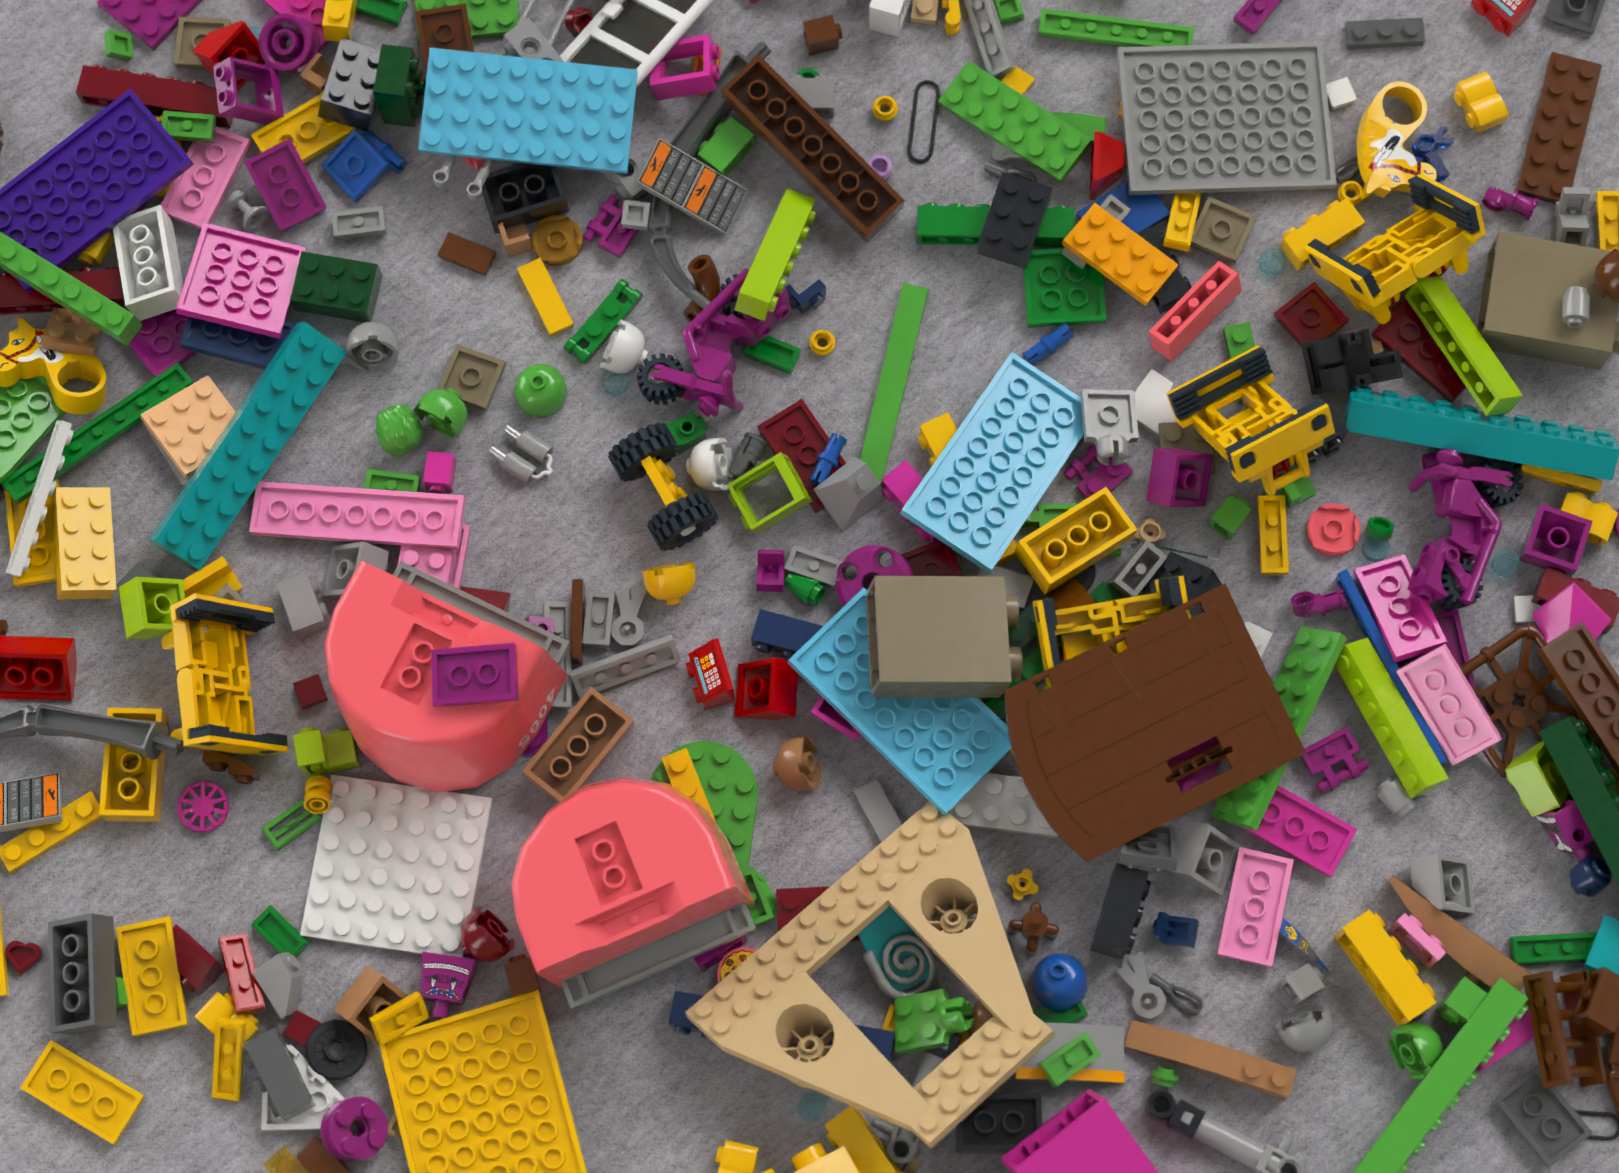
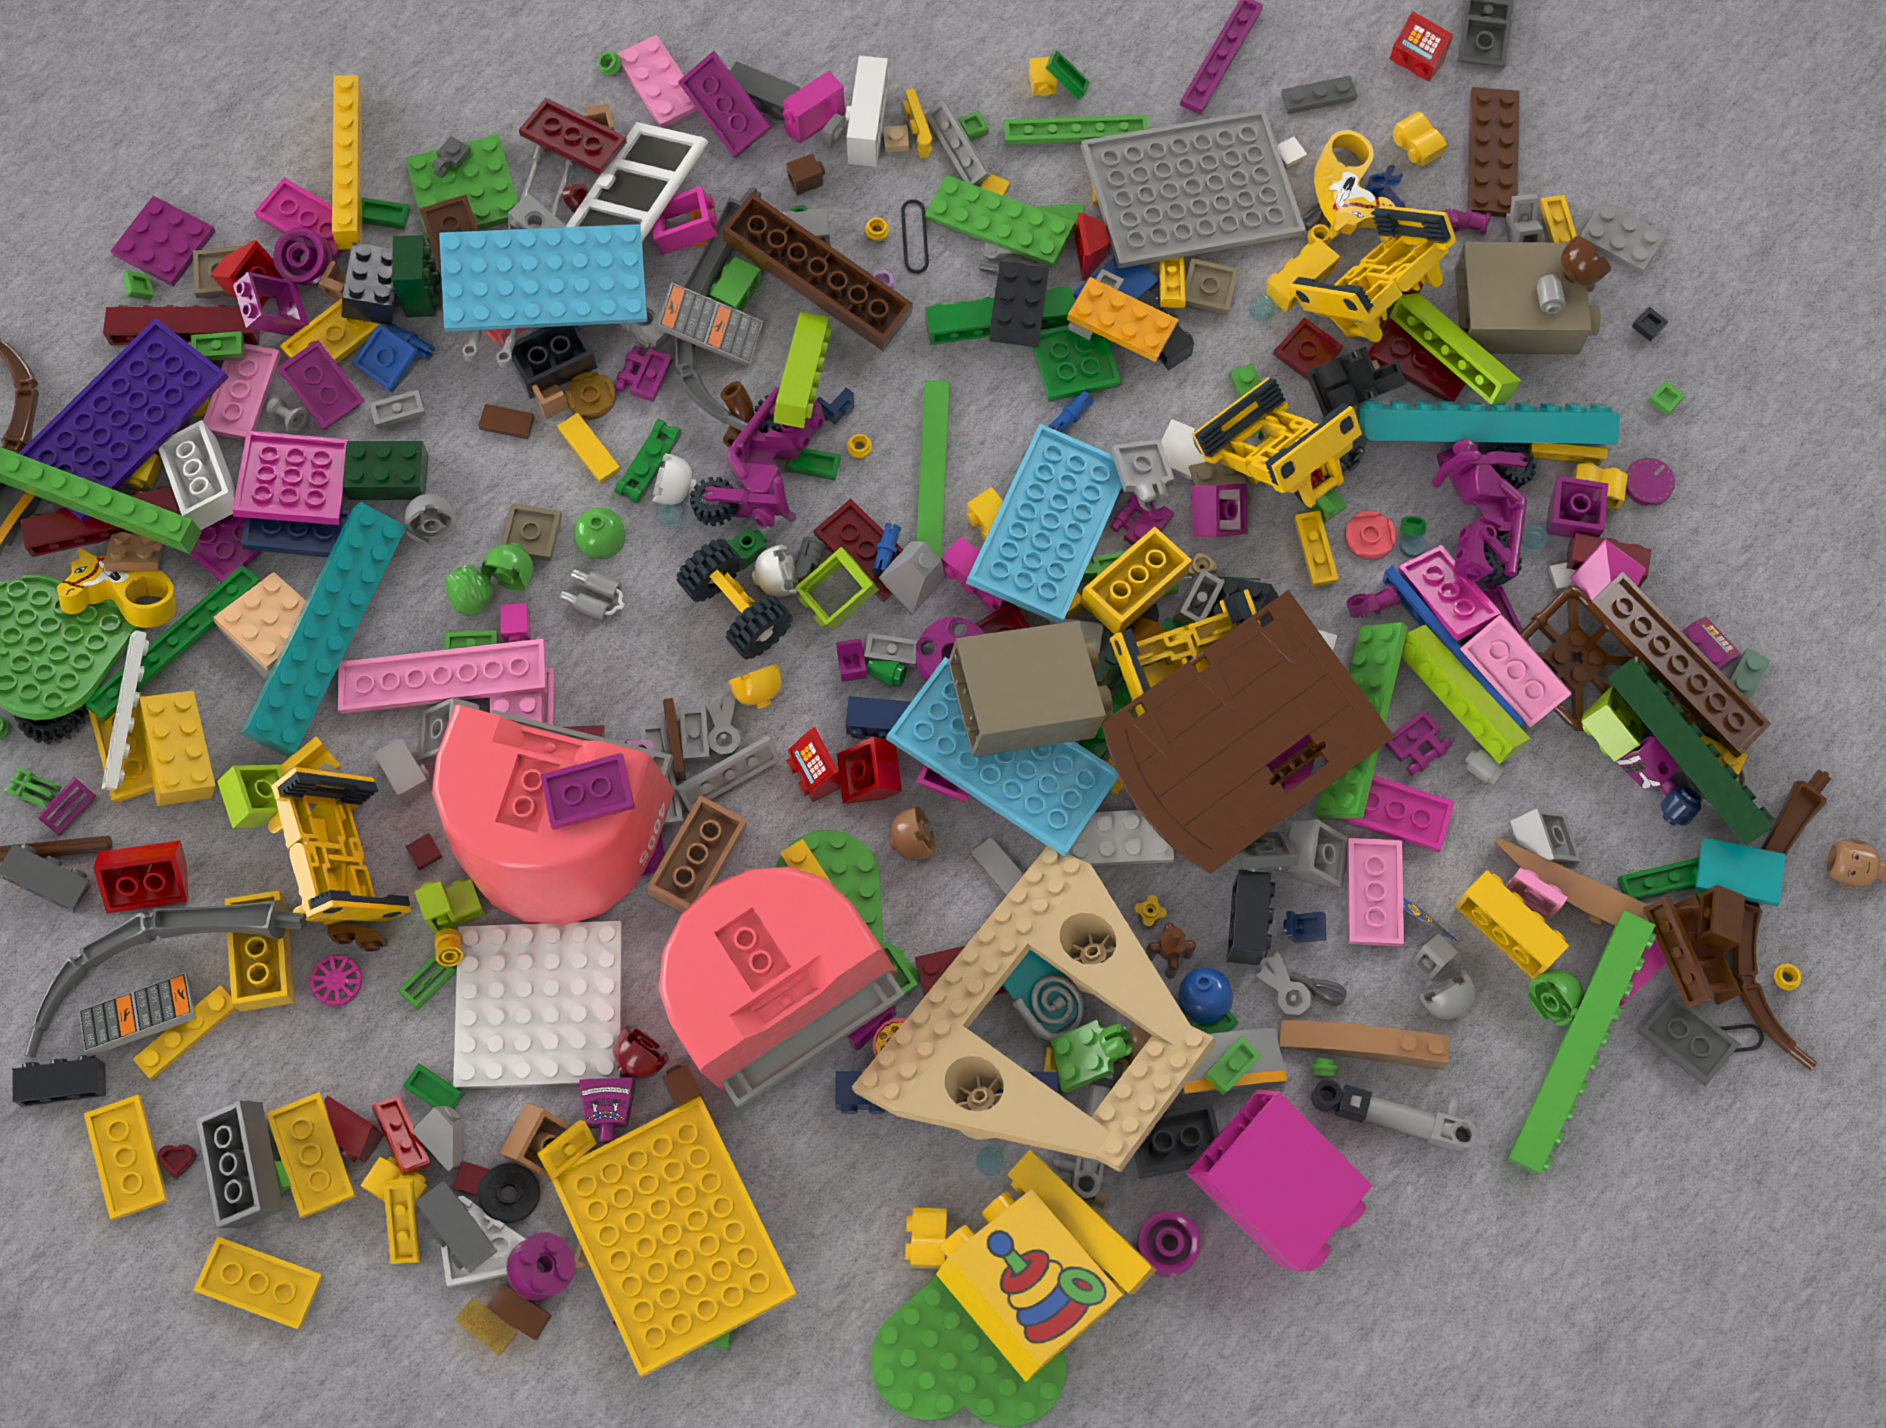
camera: 15 degrees left, 5 degrees down
(635, 215) = (661, 358): light grey plate -> none
(1195, 311) = (1201, 360): coral brick -> none
(1230, 516) = (1273, 538): bright green brick -> none
(1460, 1002) = (1589, 944): bright green brick -> none

